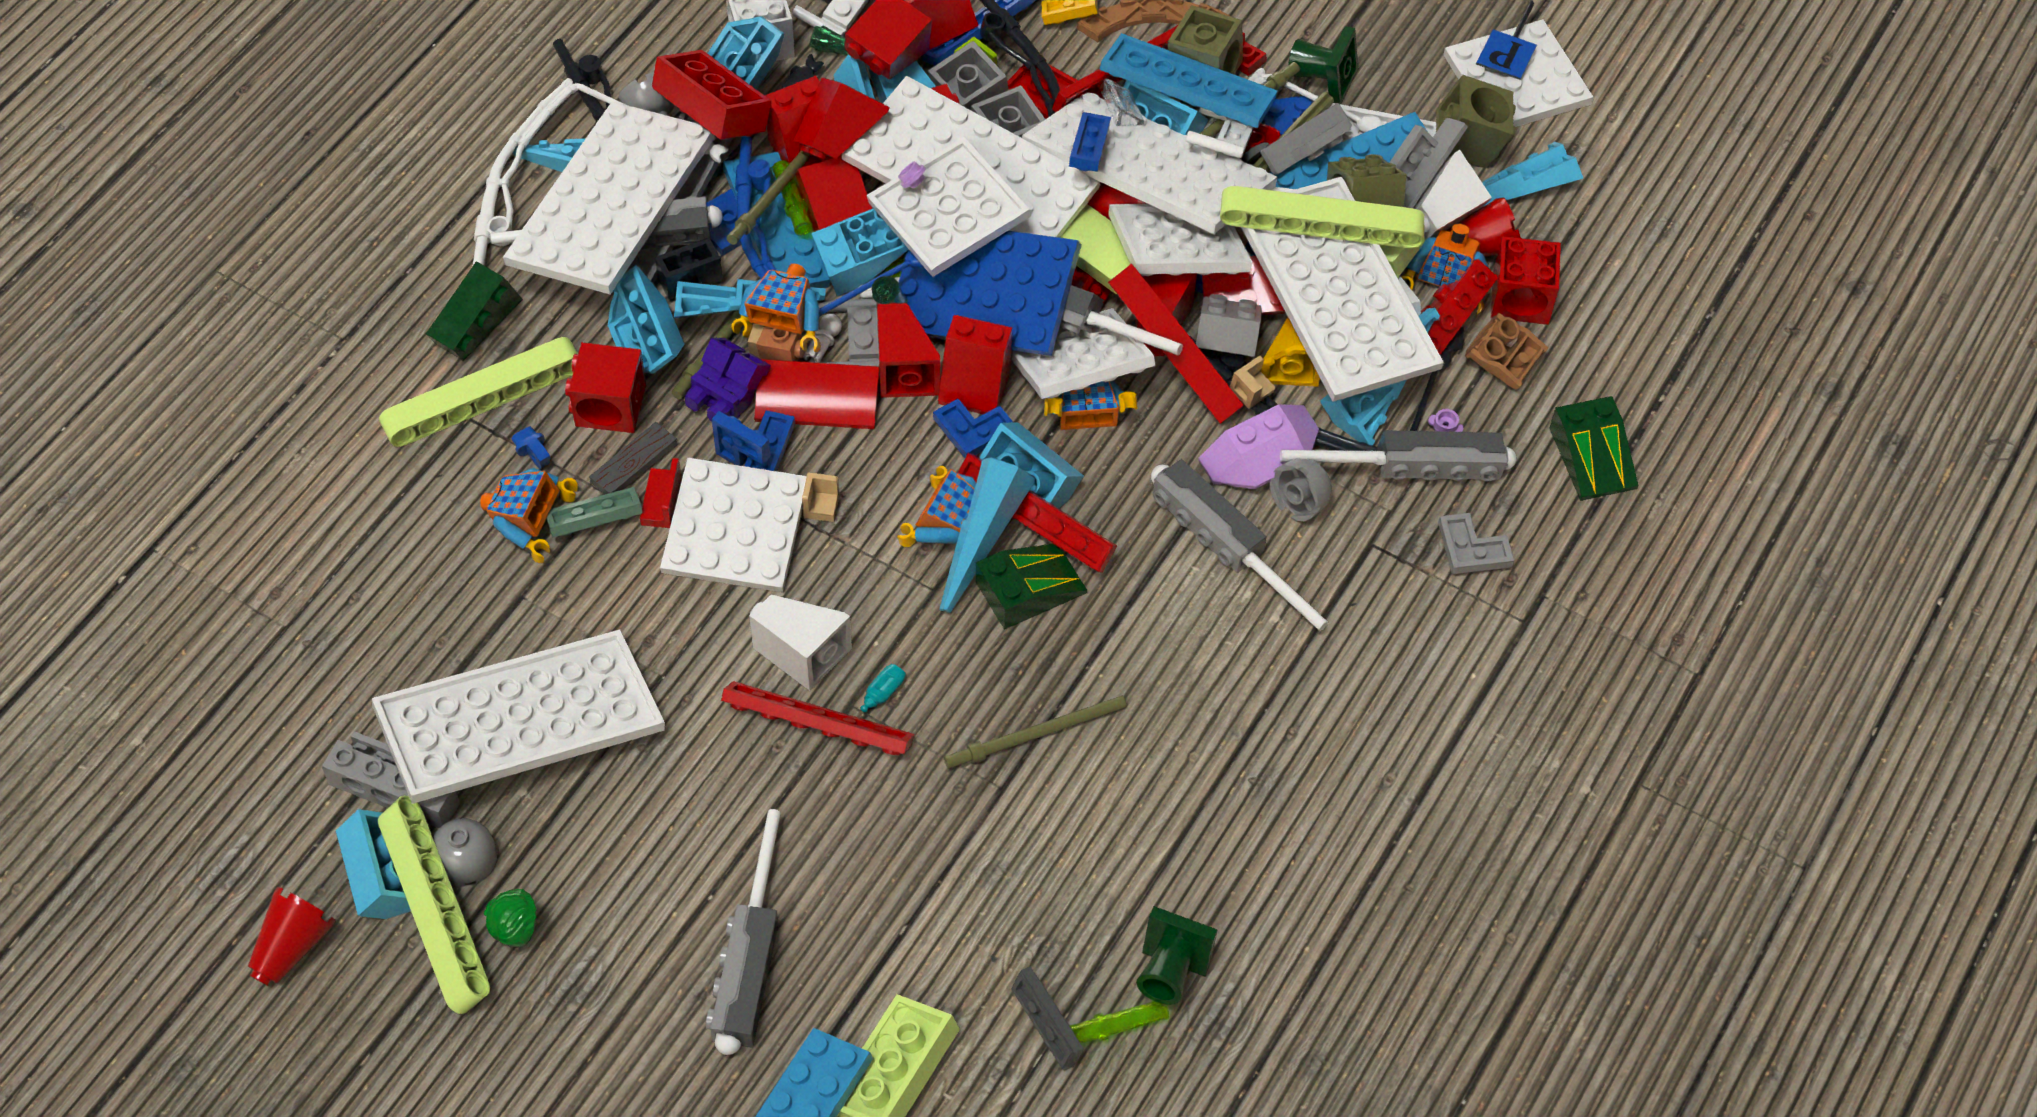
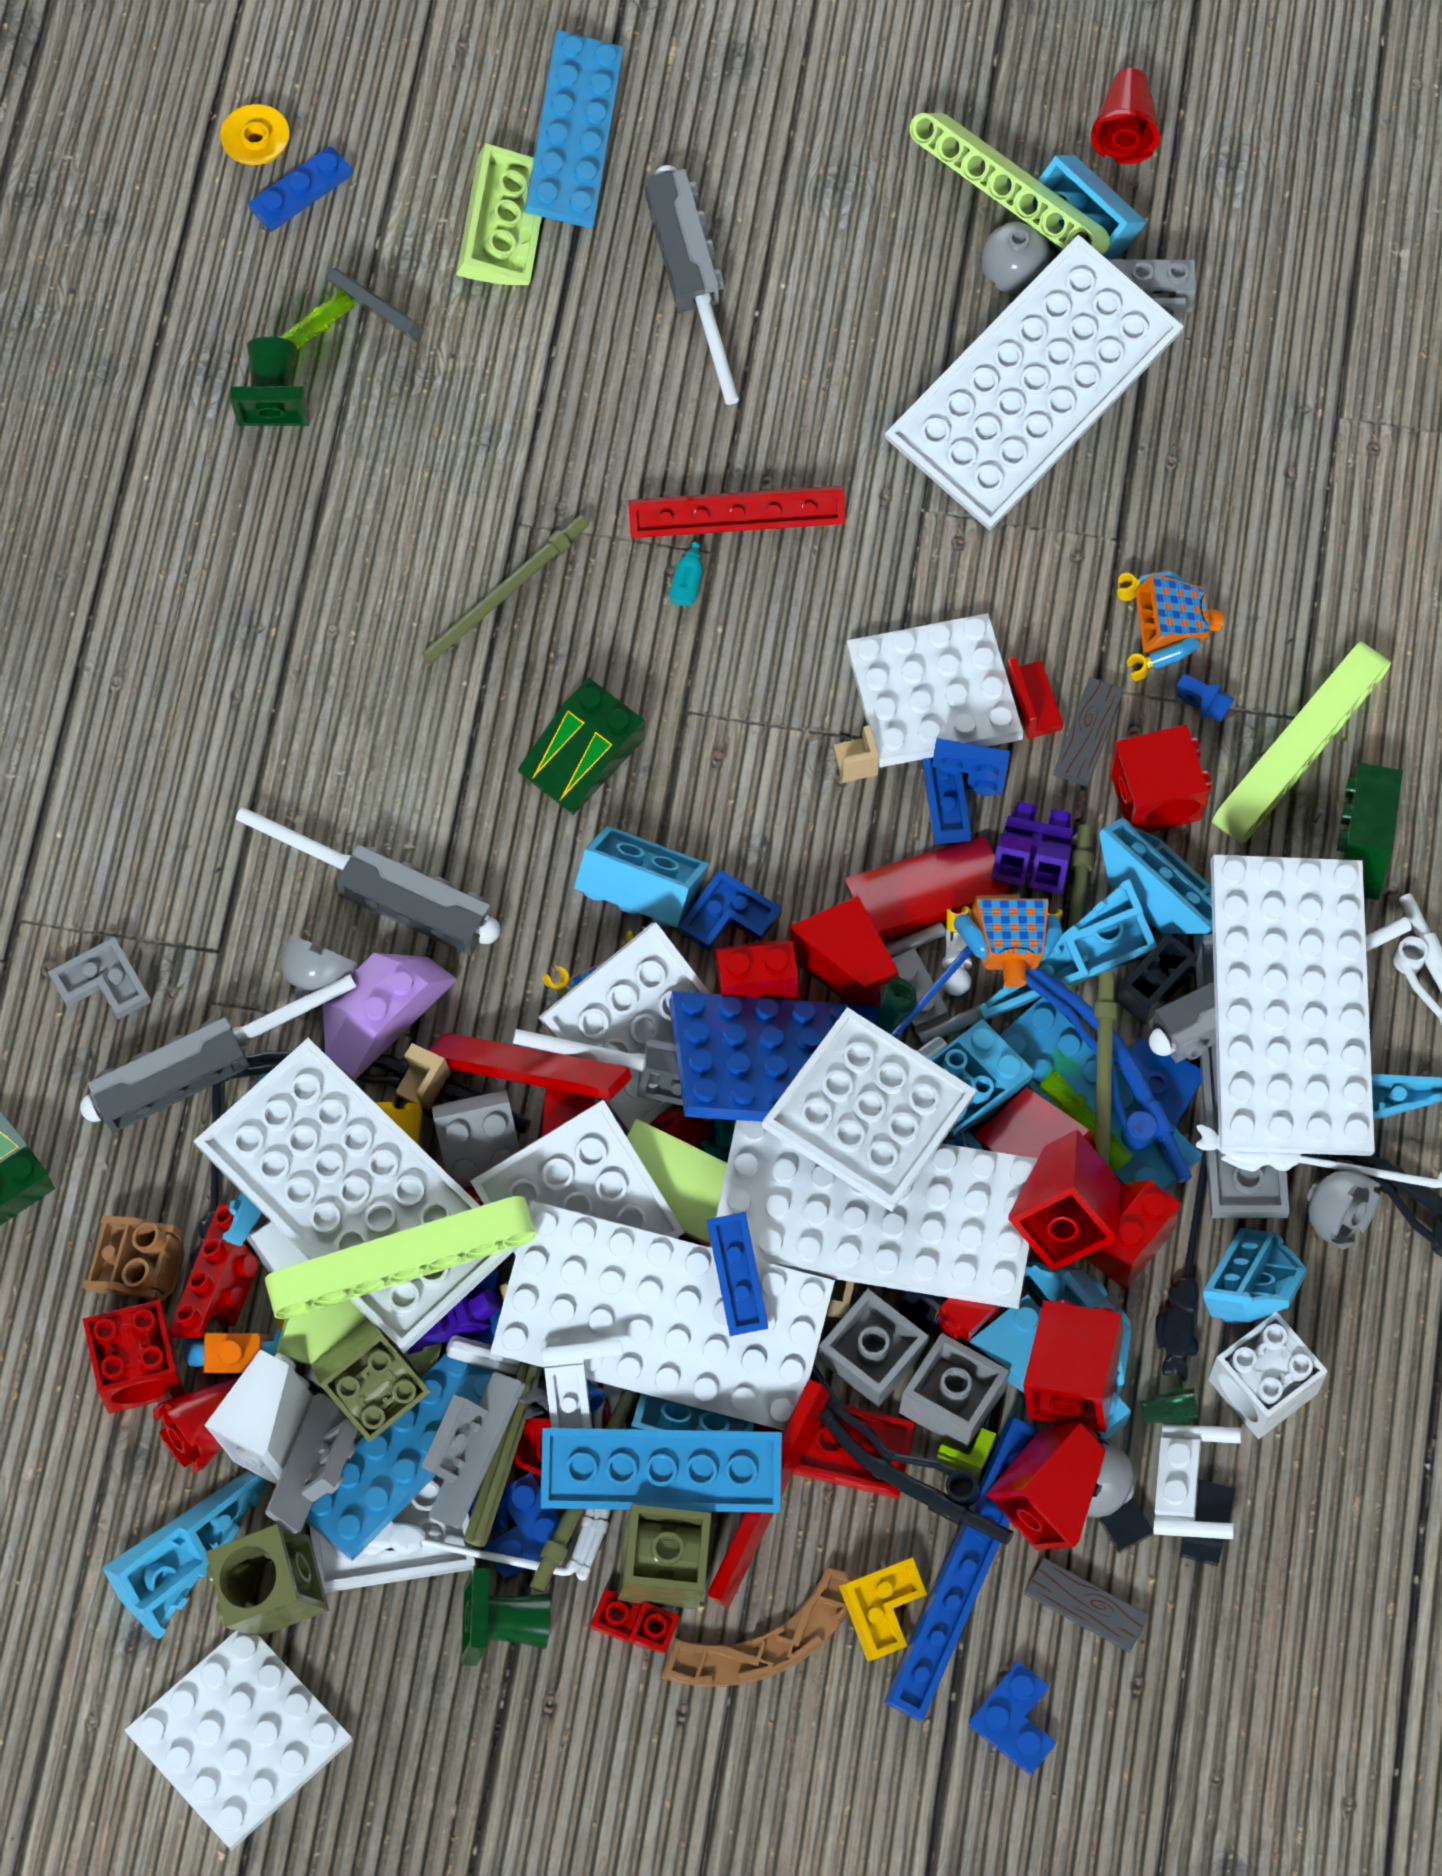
camera: 160 degrees right, 10 degrees up
(511, 917) = (929, 201): green hair -> none
(593, 512) = (1093, 646): sand green plate -> none
(711, 94) = (1252, 1191): red brick -> none
(800, 637) = (795, 571): white slope -> none
(912, 175) = (928, 1114): lavender plate -> none
(944, 511) = (702, 789): torso -> none
(995, 500) = (655, 780): medium azure wedge -> none
(1055, 524) = (611, 824): red tile -> none
(1121, 105) = (730, 1395): clear slope -> none
(1446, 417) = (167, 1135): lavender plate -> none
(1506, 52) = (260, 1749): blue piece -> none

